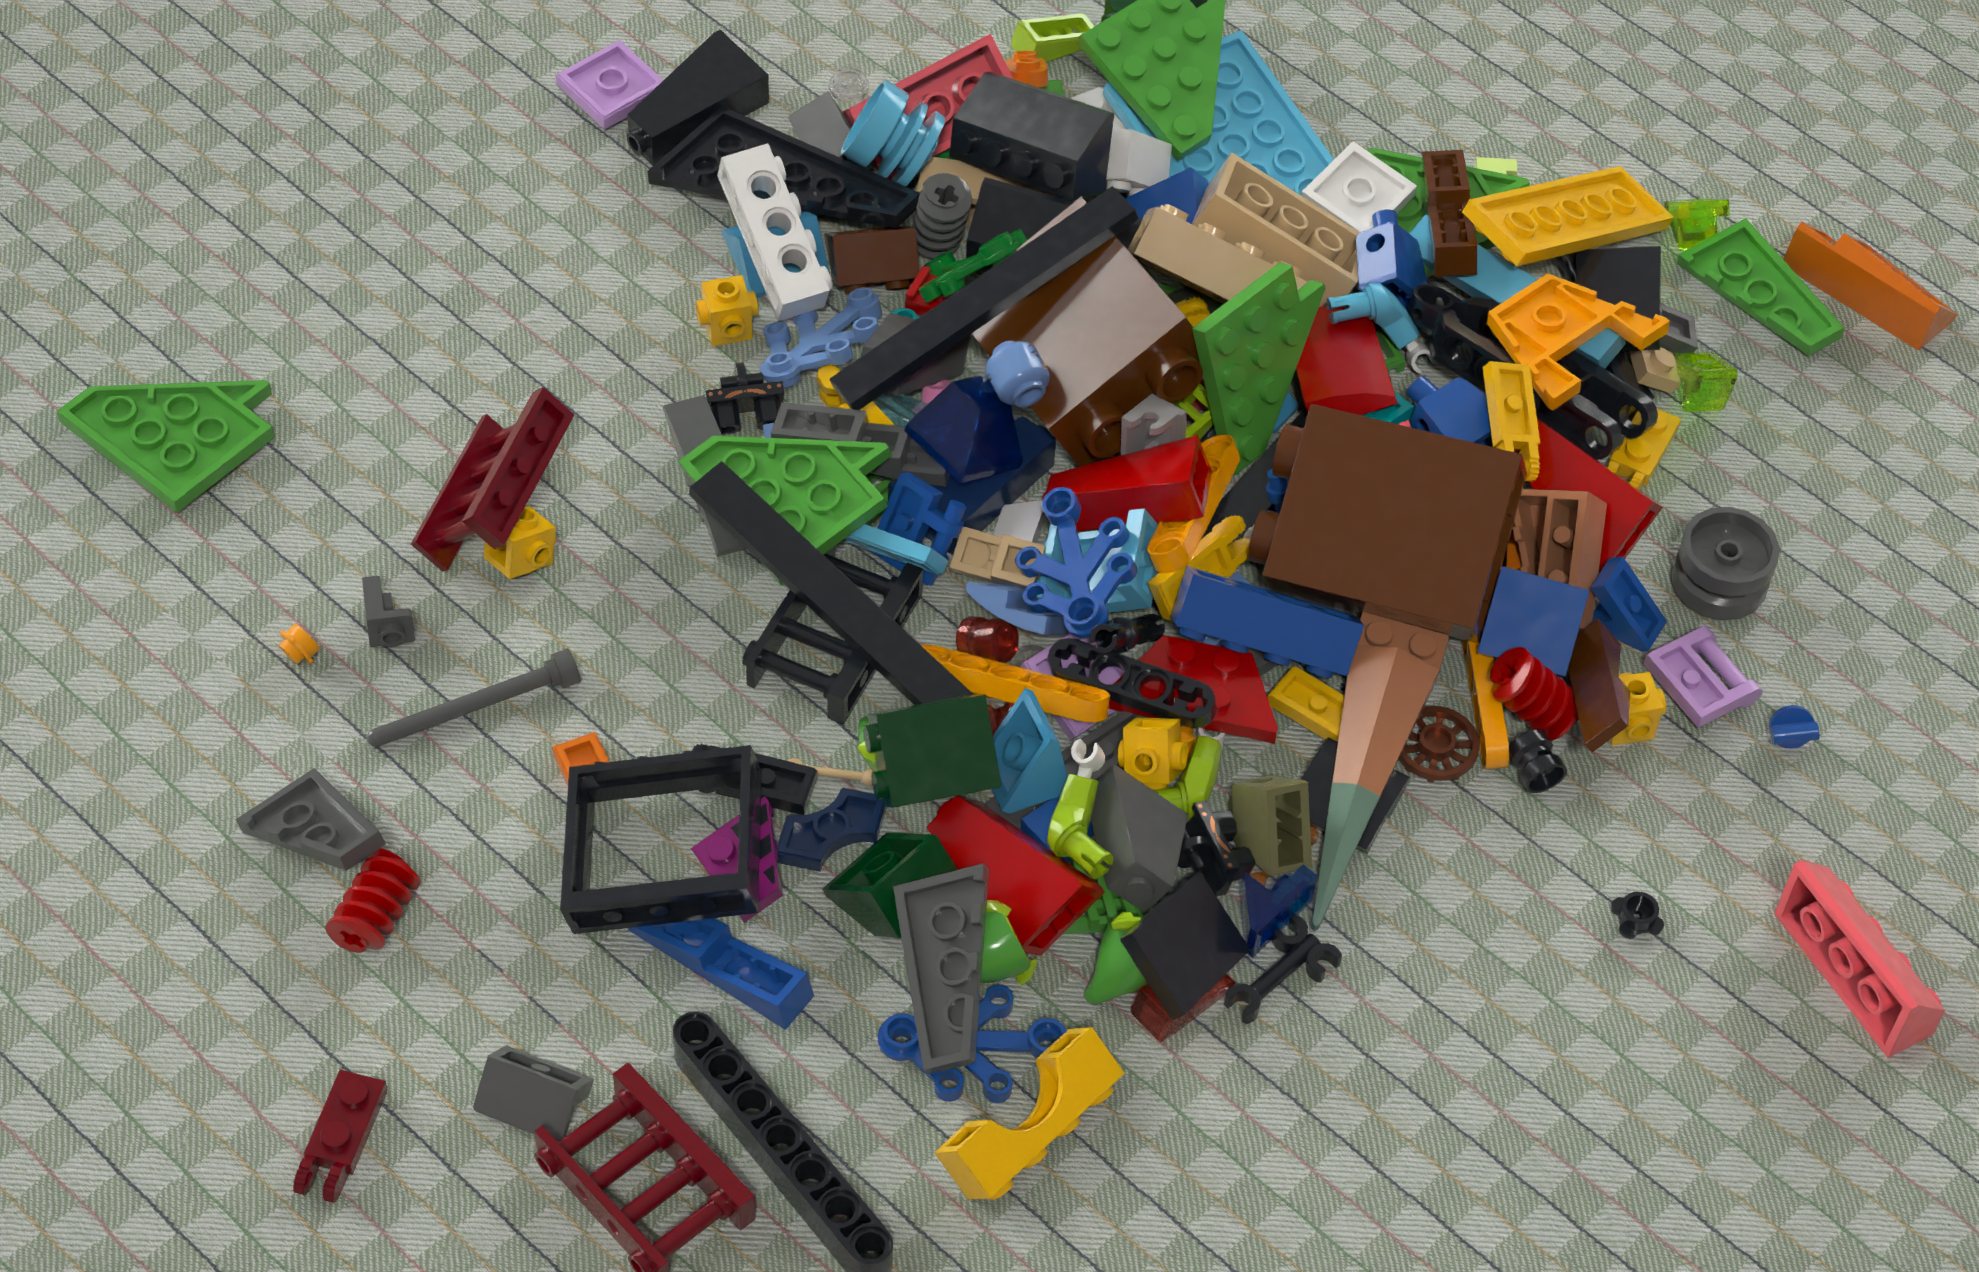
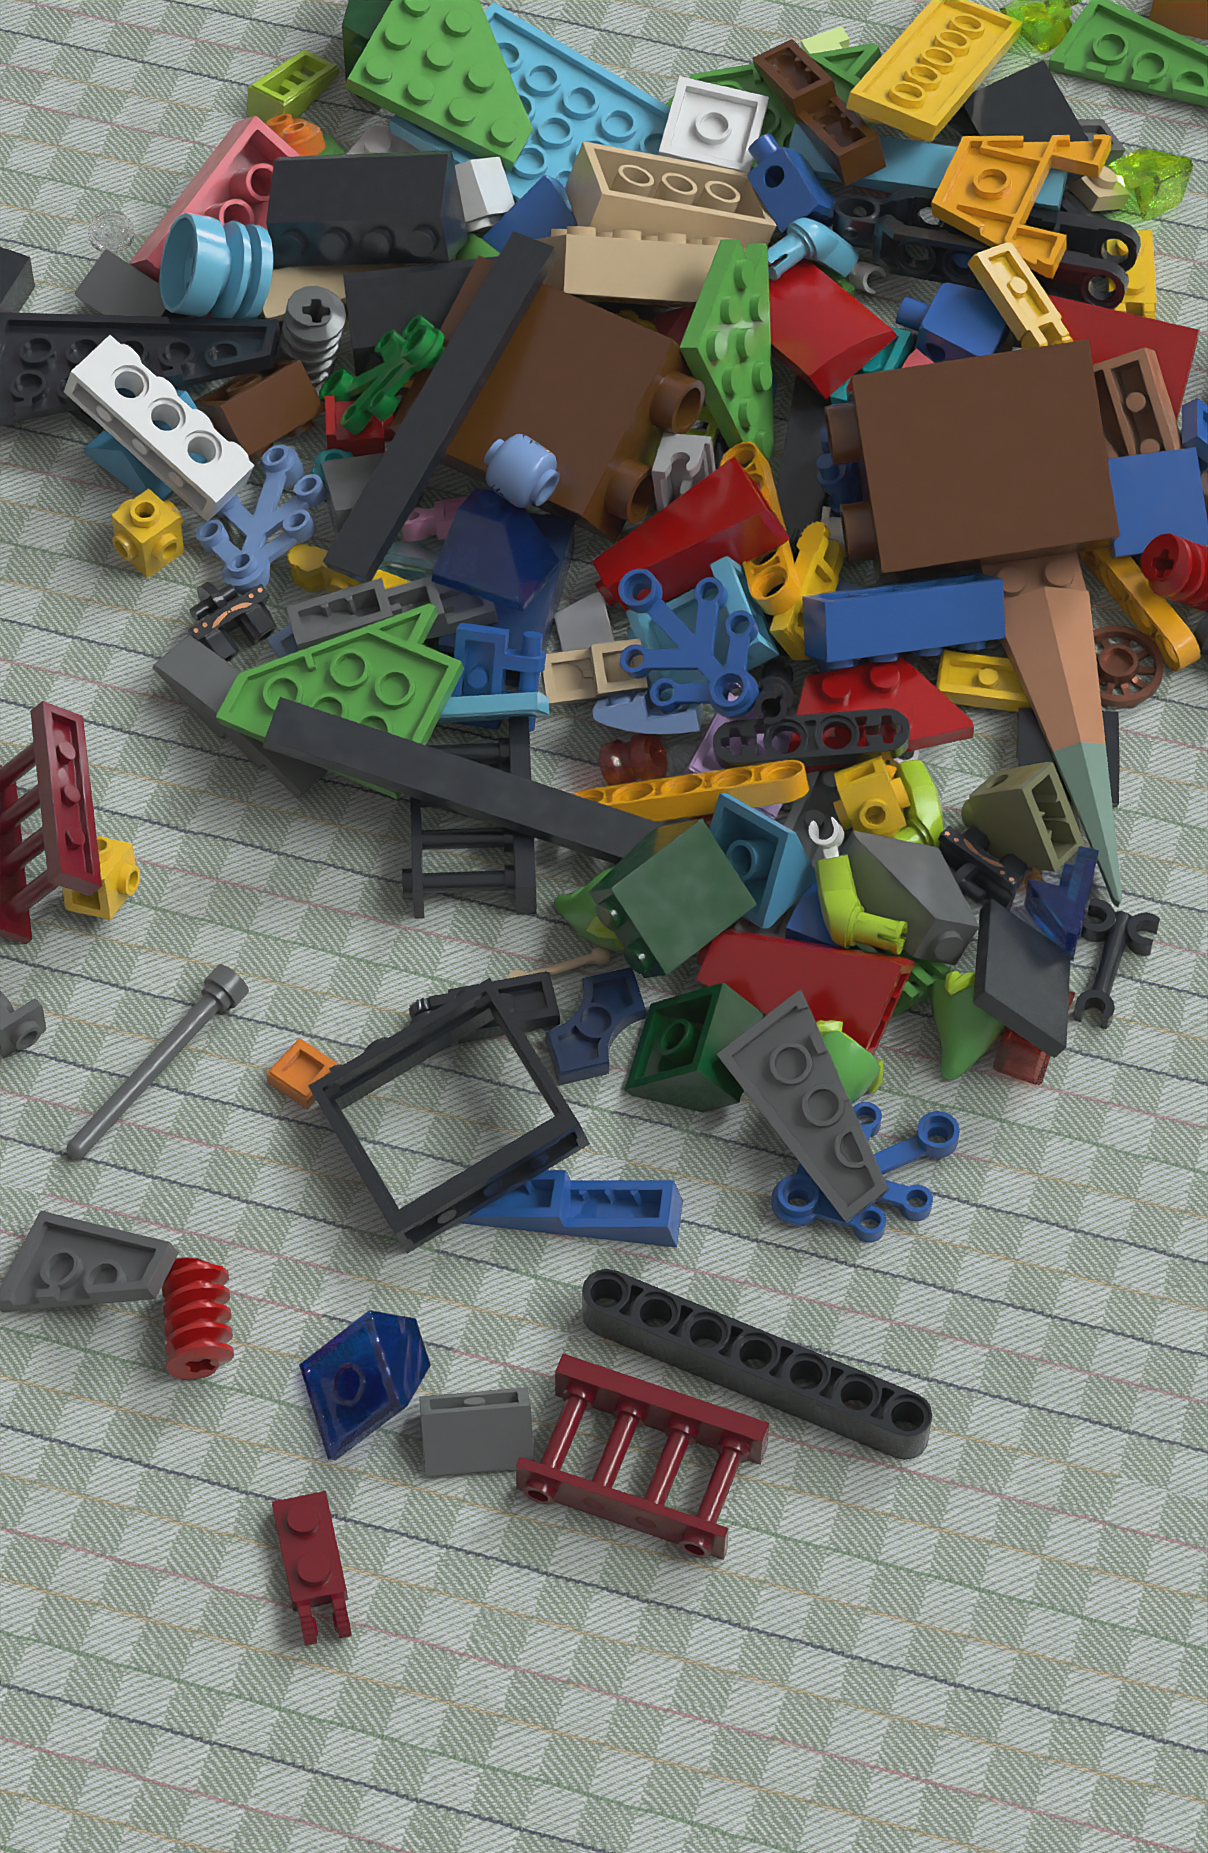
camera: 25 degrees left, 5 degrees up
(471, 1006) = (364, 1378): none -> clear blue slope
(720, 856) = (515, 1102): magenta wing -> none
(1072, 1076) = (990, 1159): yellow arch -> none

